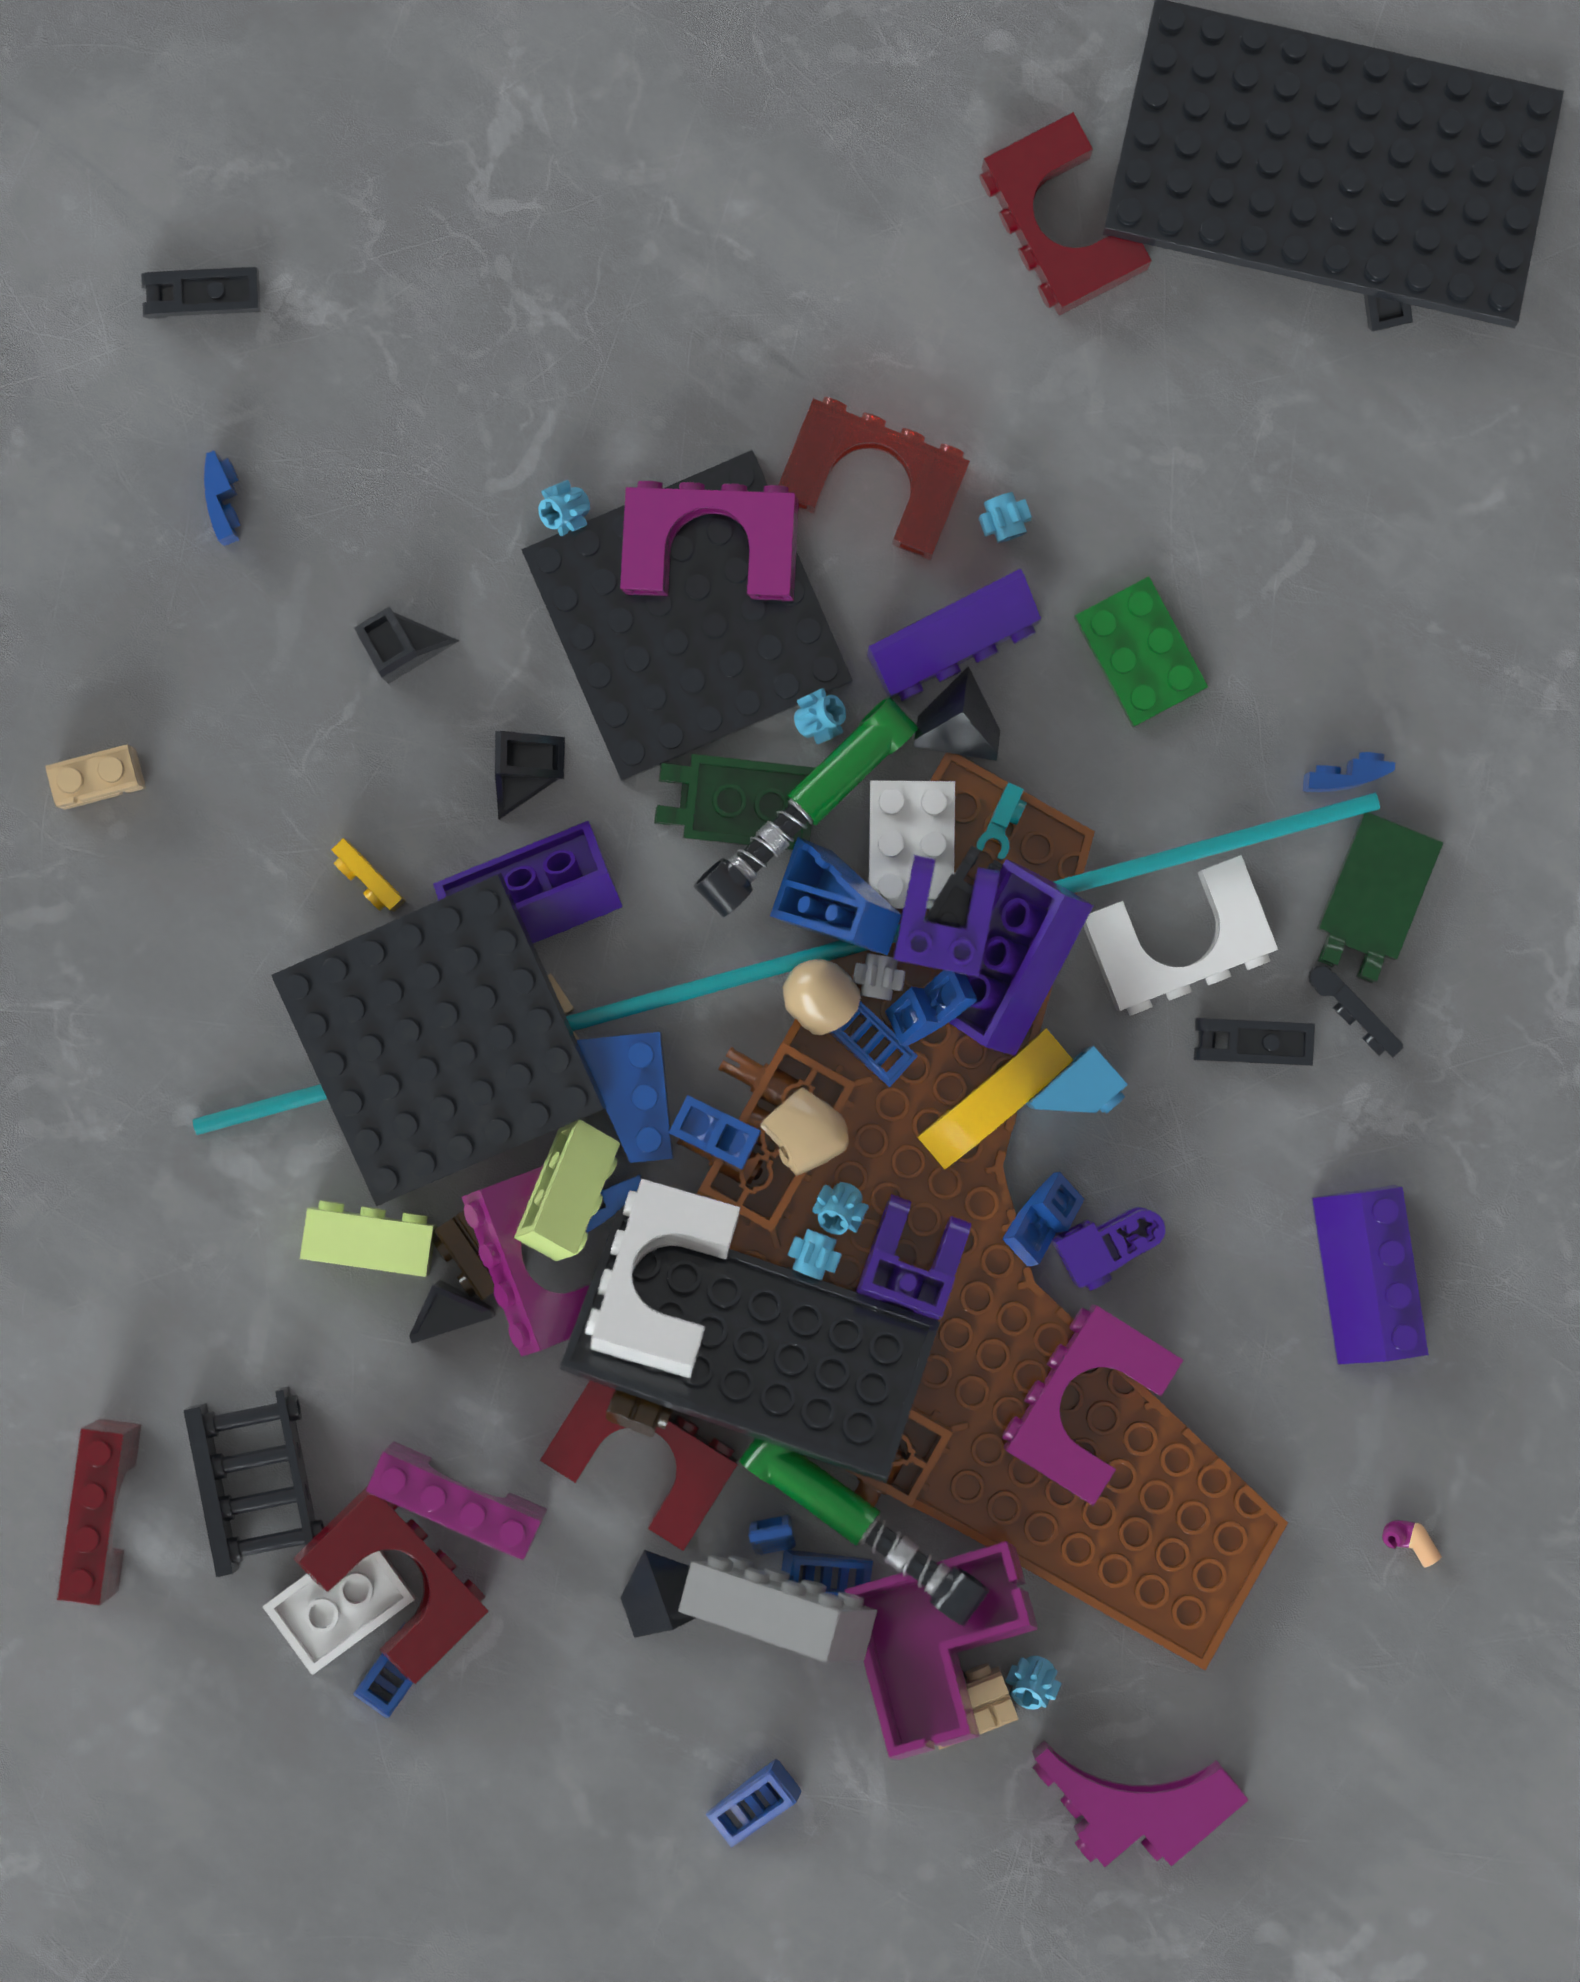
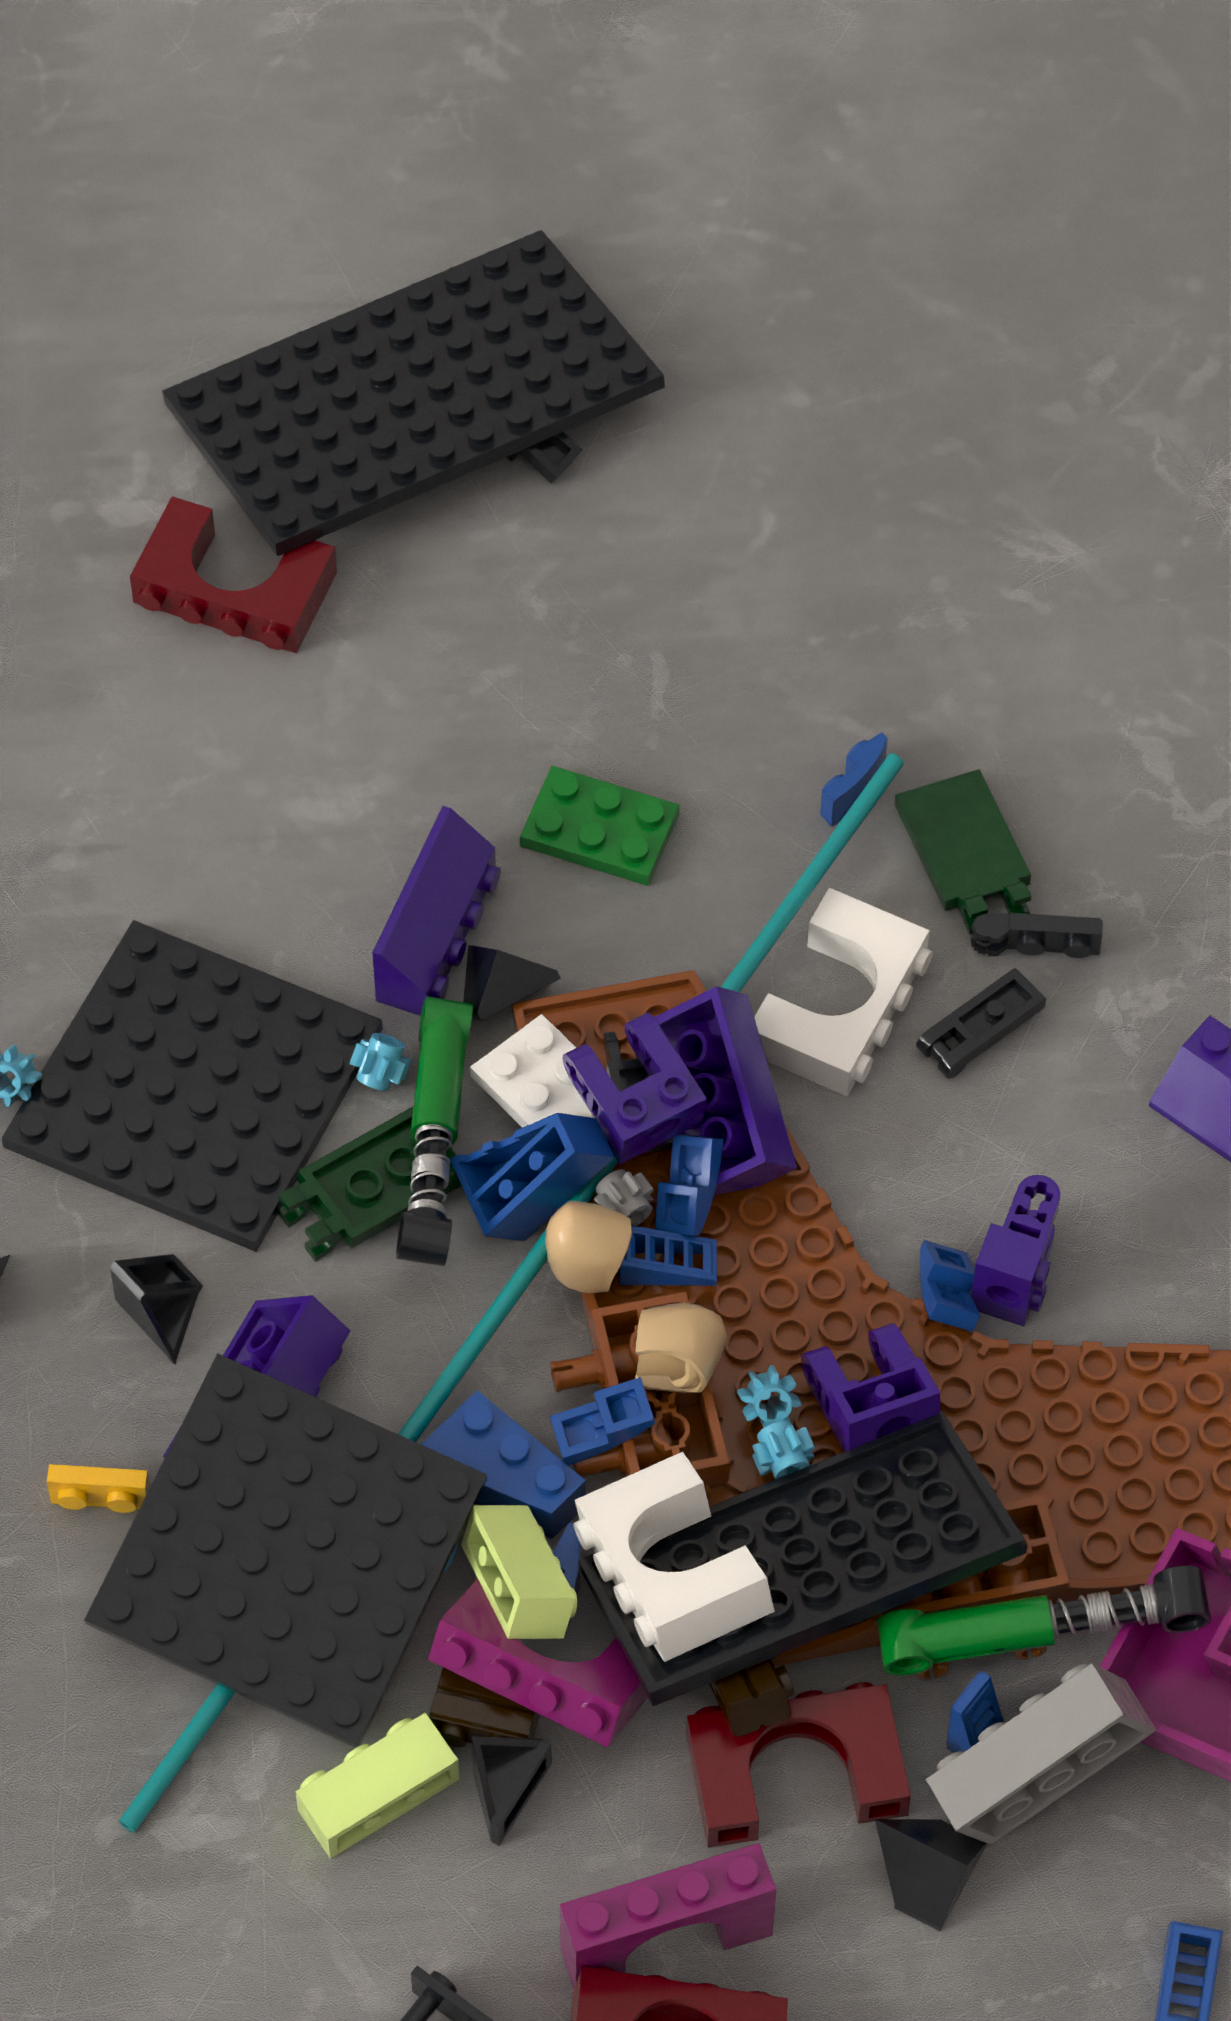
camera: 40 degrees left, 30 degrees down
(658, 513) = (189, 939): magenta arch -> none
(834, 433) = (296, 823): clear red arch -> none
(995, 1099) = (814, 1225): yellow slope -> none
(1005, 517) = (393, 808): medium azure gear -> none
(1008, 810) = (606, 999): teal plate -> none
(1039, 1434) = (1121, 1439): magenta arch -> none
(1082, 1086) = (878, 1152): dark azure slope -> none

